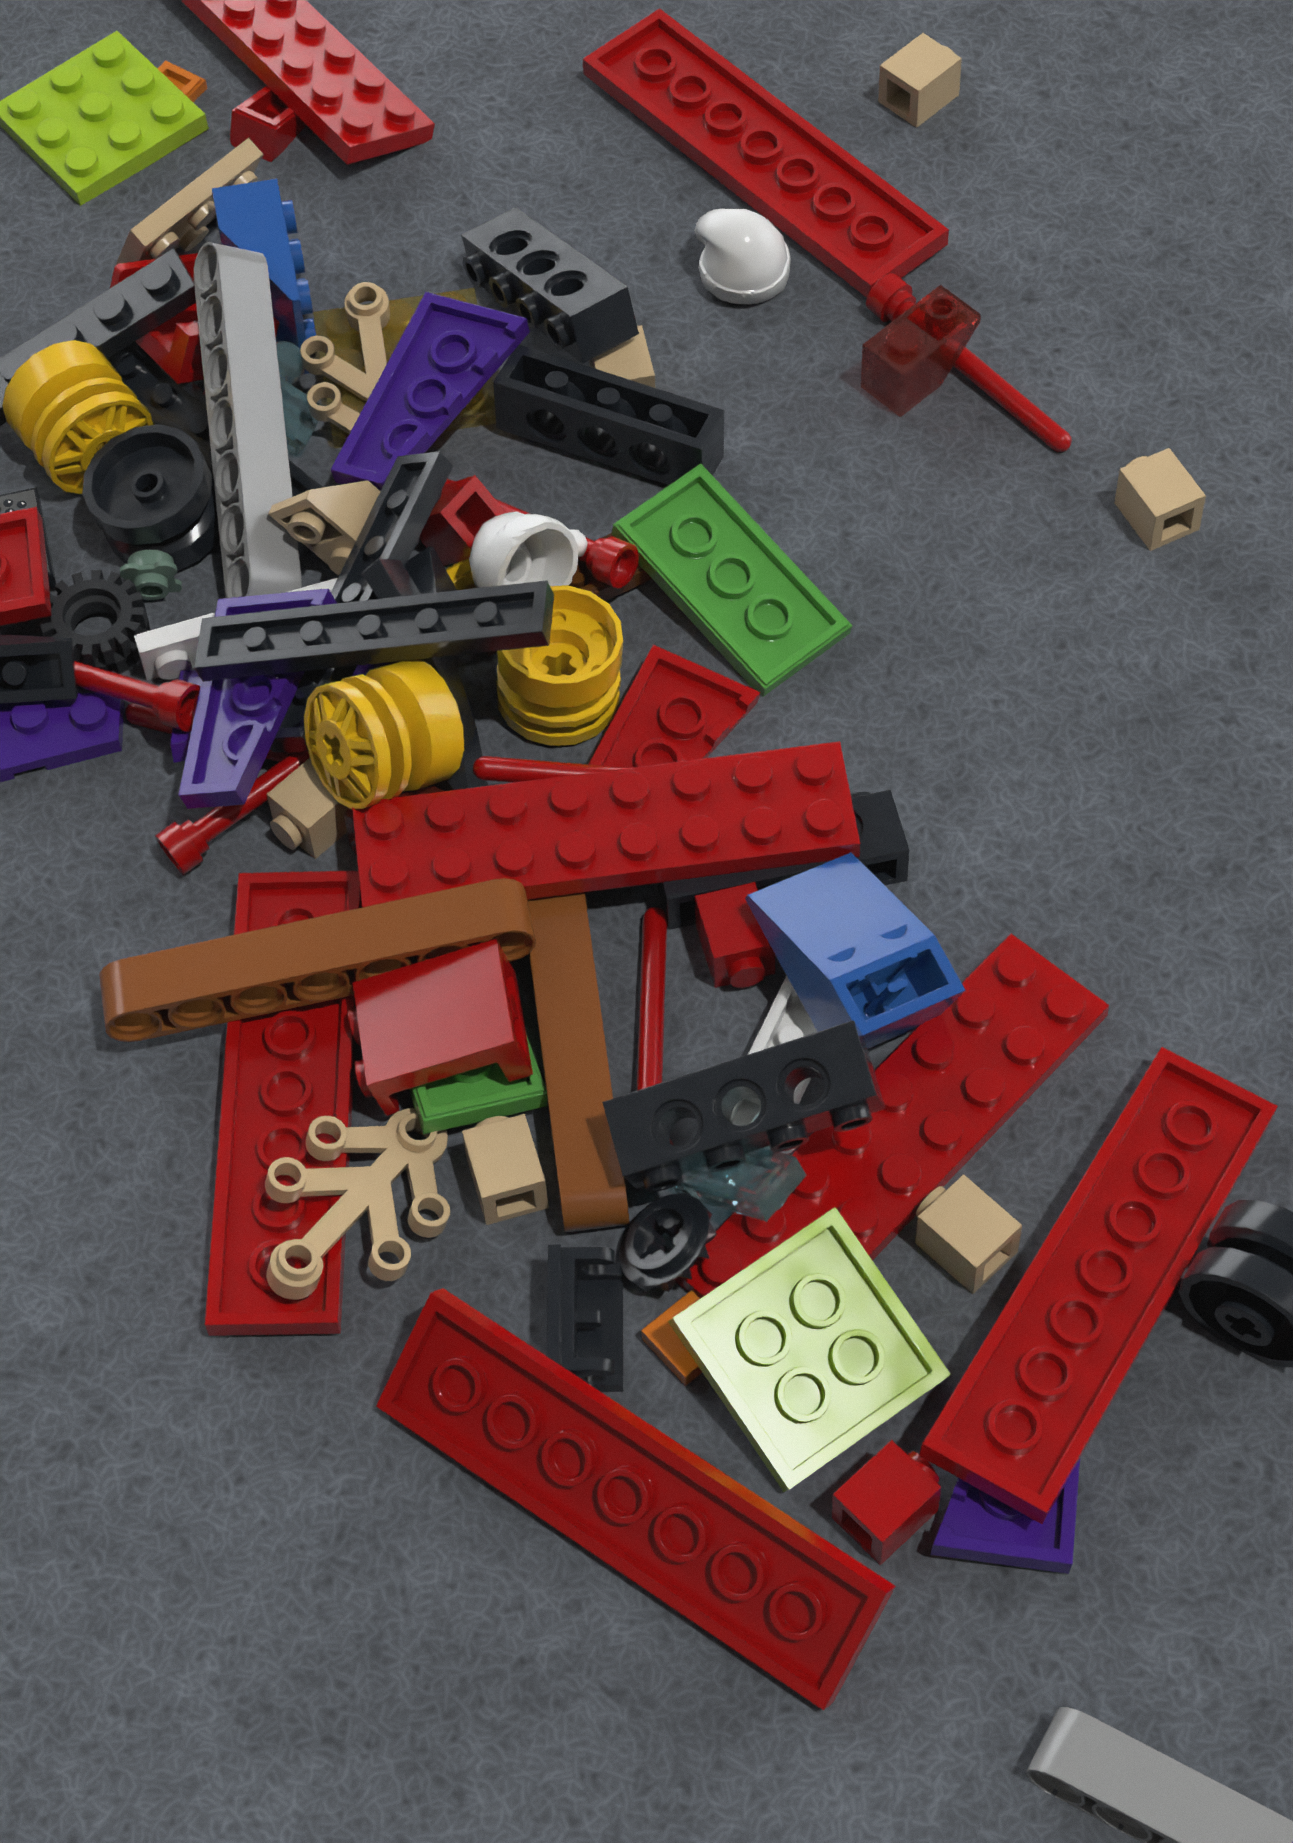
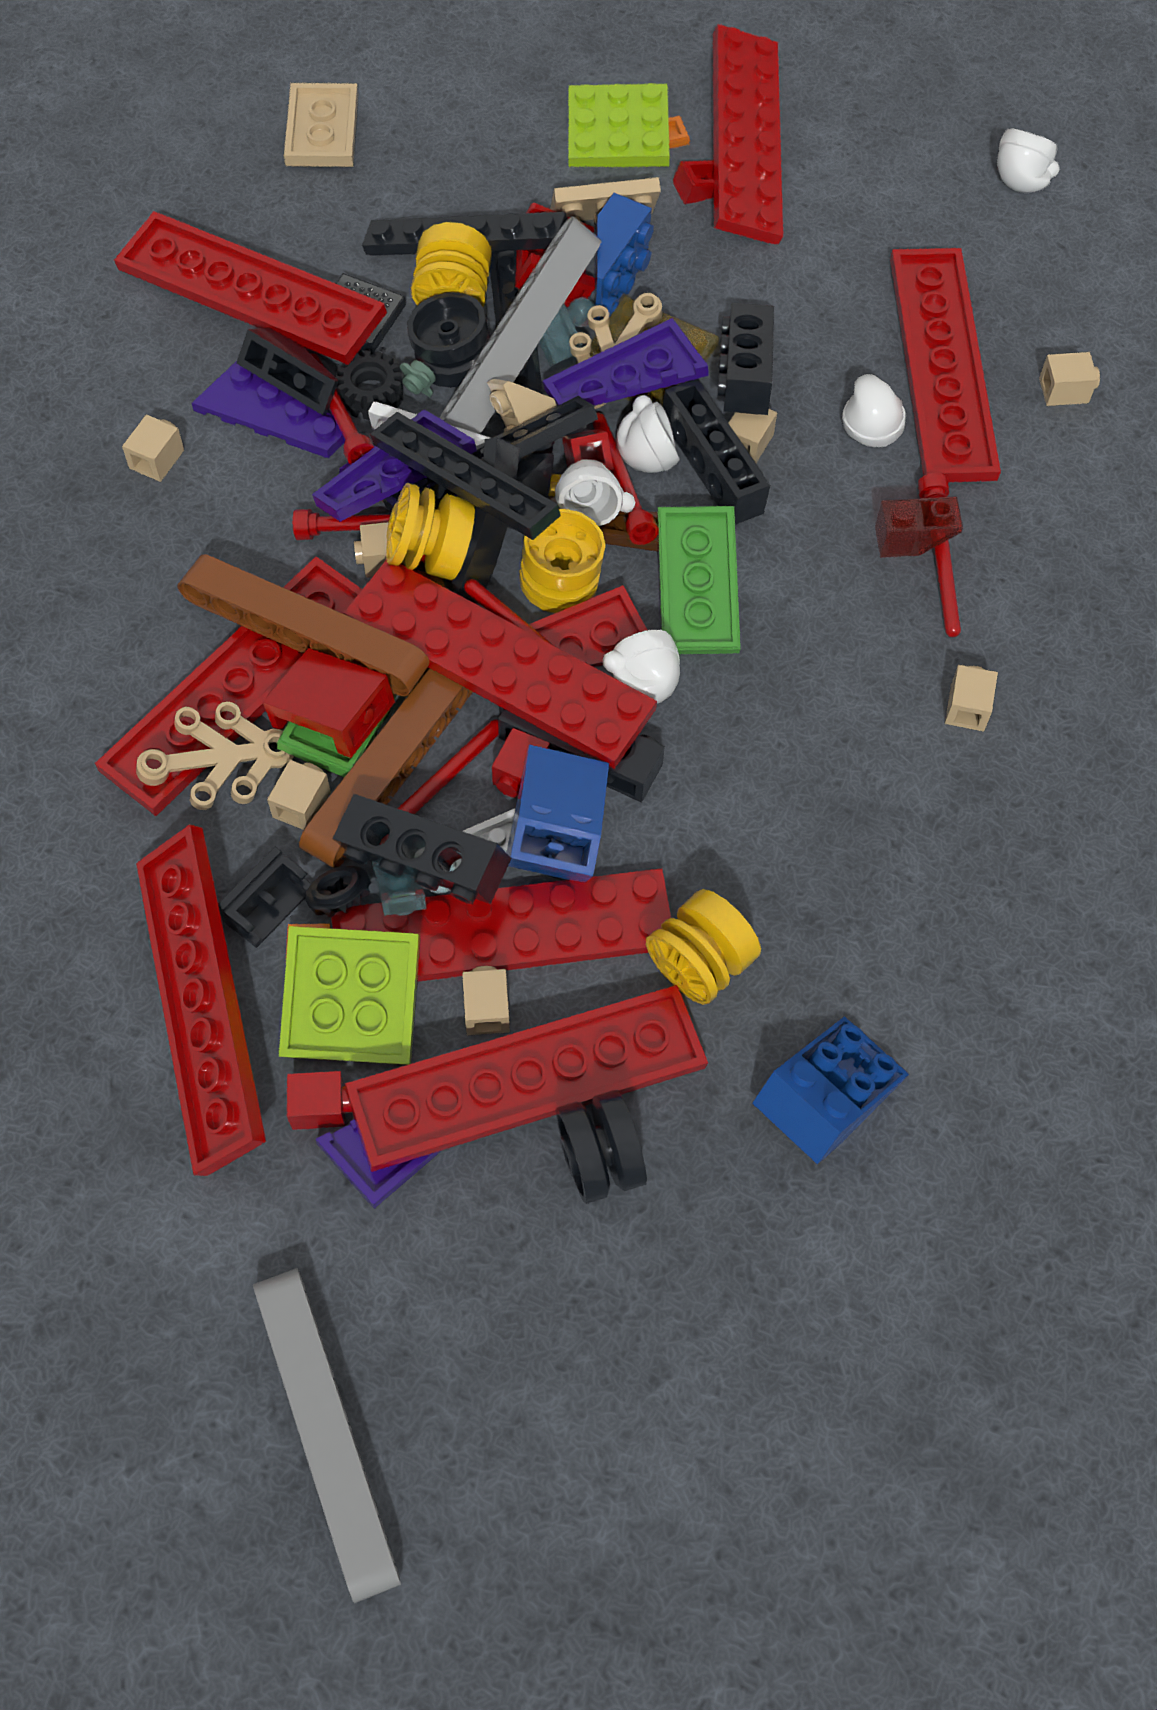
camera: 35 degrees right, 5 degrees up
(515, 455) = (647, 438): none -> white piece
(777, 710) = (646, 663): none -> white piece
(1156, 977) = (703, 946): none -> yellow wheel

